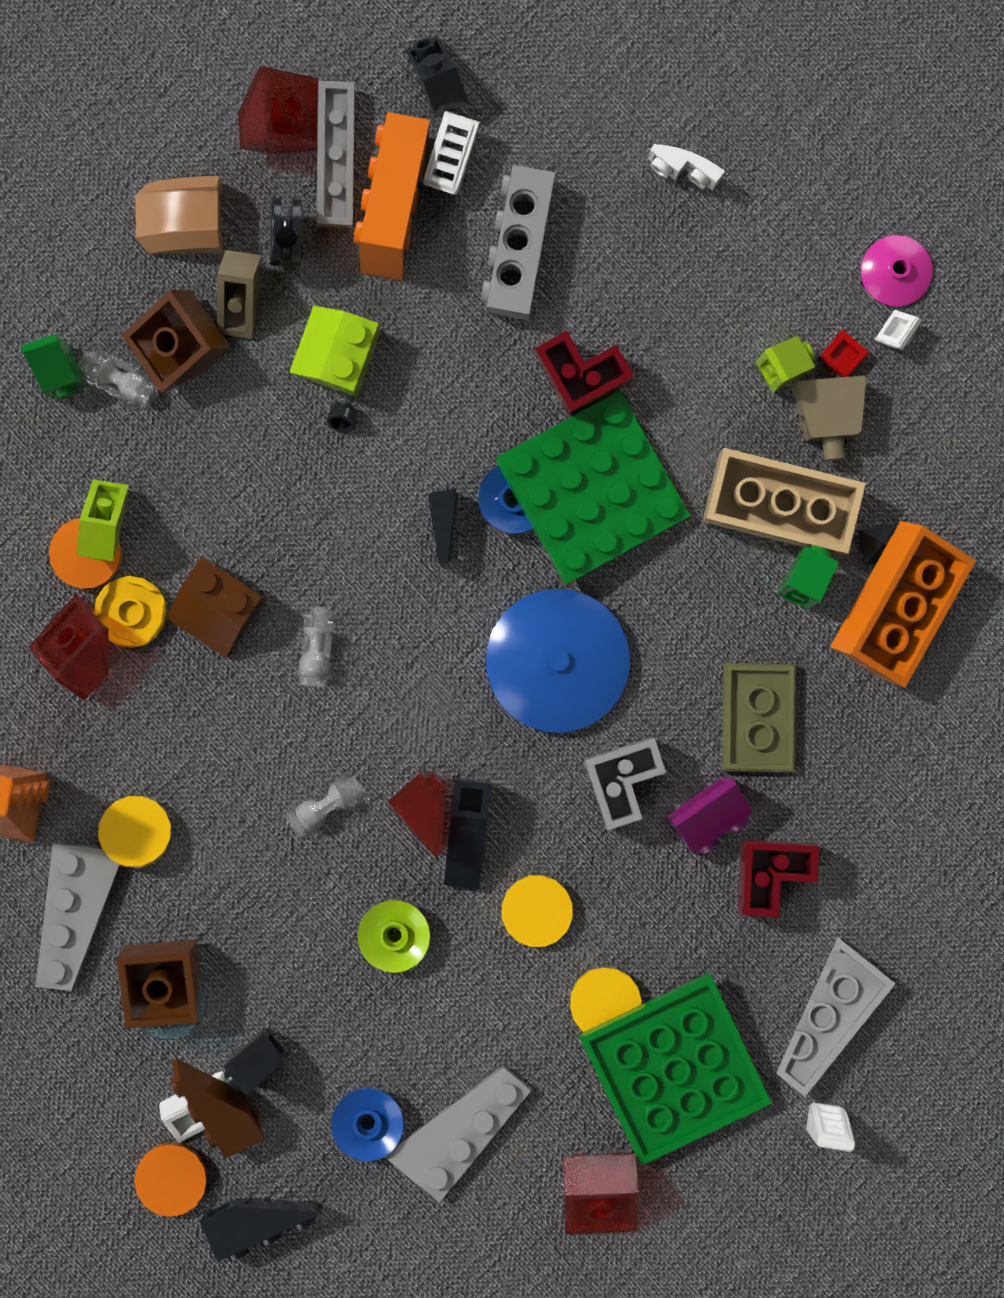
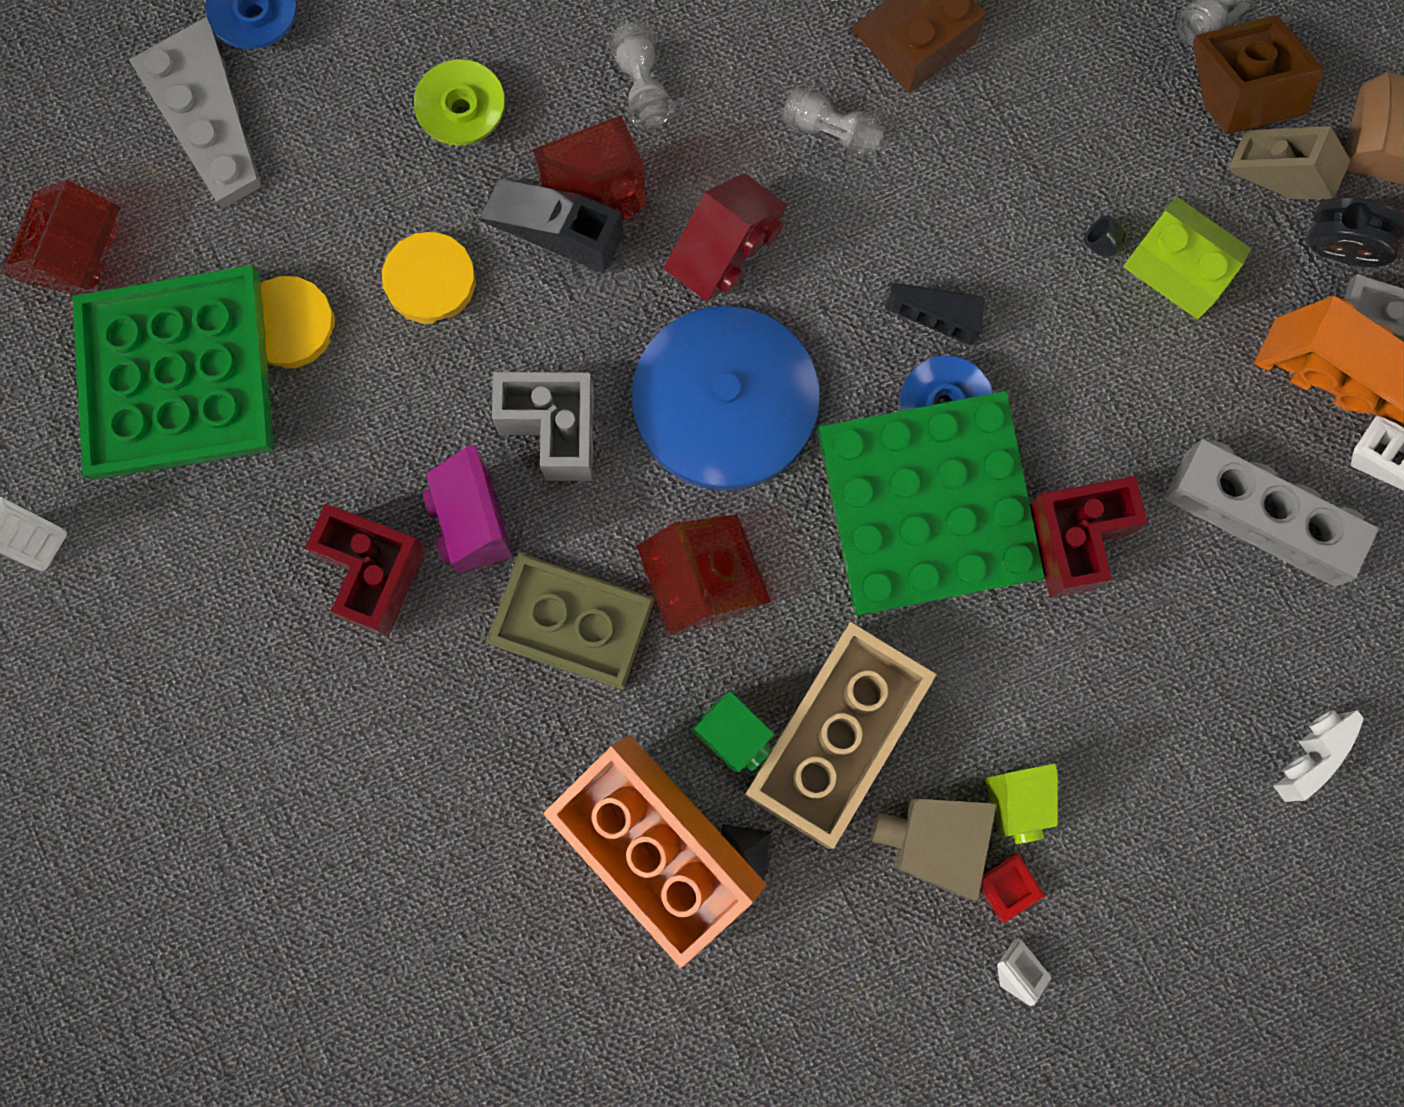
camera: 105 degrees right, 10 degrees down
(439, 696) = (723, 231): none -> dark red brick
(696, 633) = (702, 573): none -> clear red slope
(836, 1010) = (165, 596): light grey wing -> none
(884, 283) = (1079, 994): dark pink dish -> none

